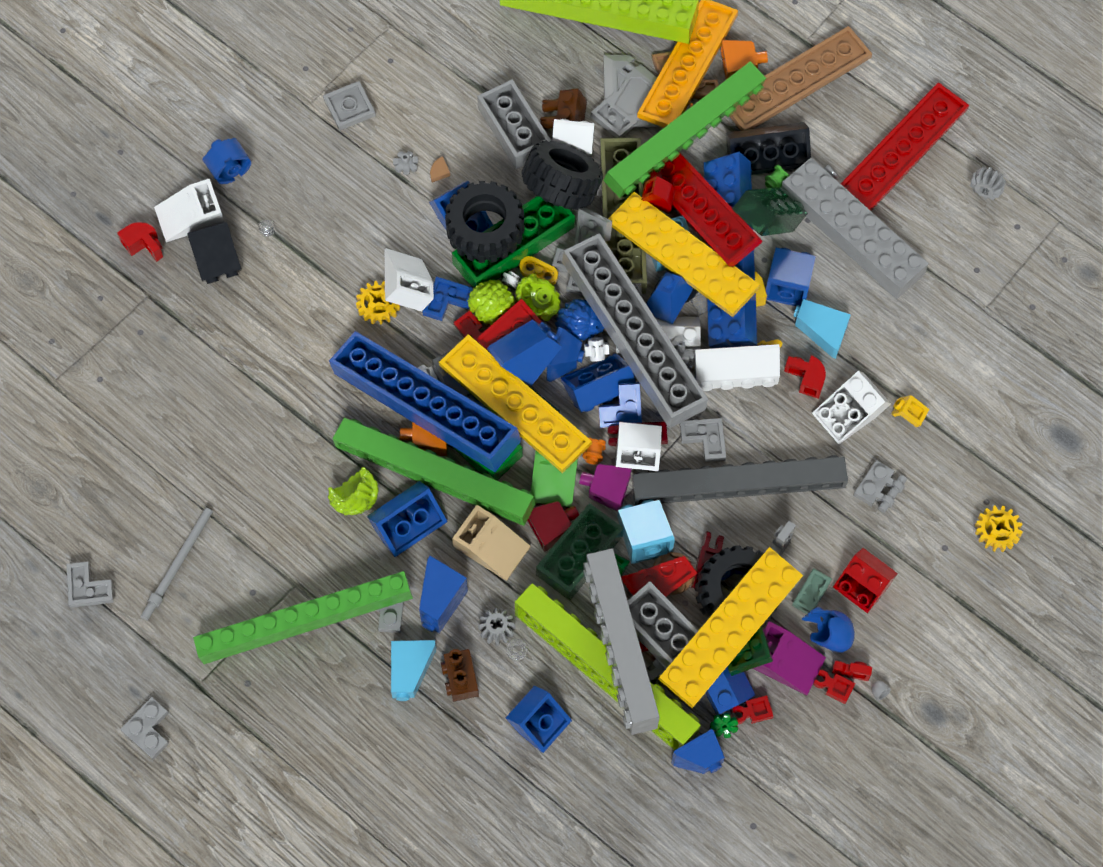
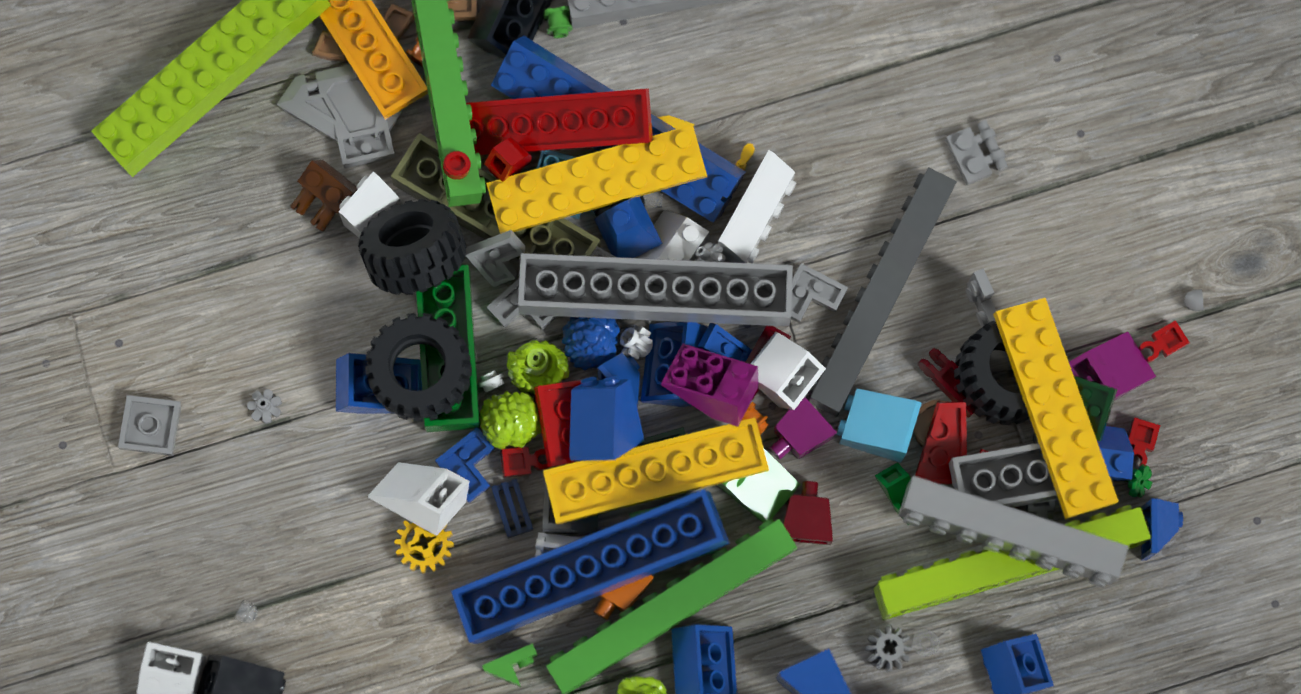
camera: 60 degrees left, 10 degrees up
(227, 160) = (132, 607): blue brick -> none
(330, 397) = (503, 666): none -> bright green slope
(439, 170) = (300, 374): medium nougat tile -> none
(447, 329) = (505, 486): none -> dark blue tile
(490, 543) = (791, 596): tan slope -> none
(511, 121) = (302, 257): light grey brick -> none
(539, 267) = (498, 343): yellow plate -> none
(588, 534) = (861, 508): clear green brick -> none
(596, 402) = (712, 383): none -> magenta slope
(630, 163) = (456, 165): none -> red tile
(770, 211) = (605, 55): clear green brick -> none
(789, 276) = (684, 83): blue slope -> none
(811, 372) = (811, 136): red brick -> none
(812, 591) = (1045, 286): sand green plate -> none
(822, 325) = (761, 89): medium azure slope -> none
(834, 631) = (1109, 305): blue helmet -> none
(851, 407) = (872, 122): white slope -> none
(854, 670) = (1162, 307): red plate -> none
(865, 580) = (1071, 236): red slope -> none
(910, 409) = (913, 65): yellow bracket -> none
(998, 518) = (1093, 77): yellow gear -> none

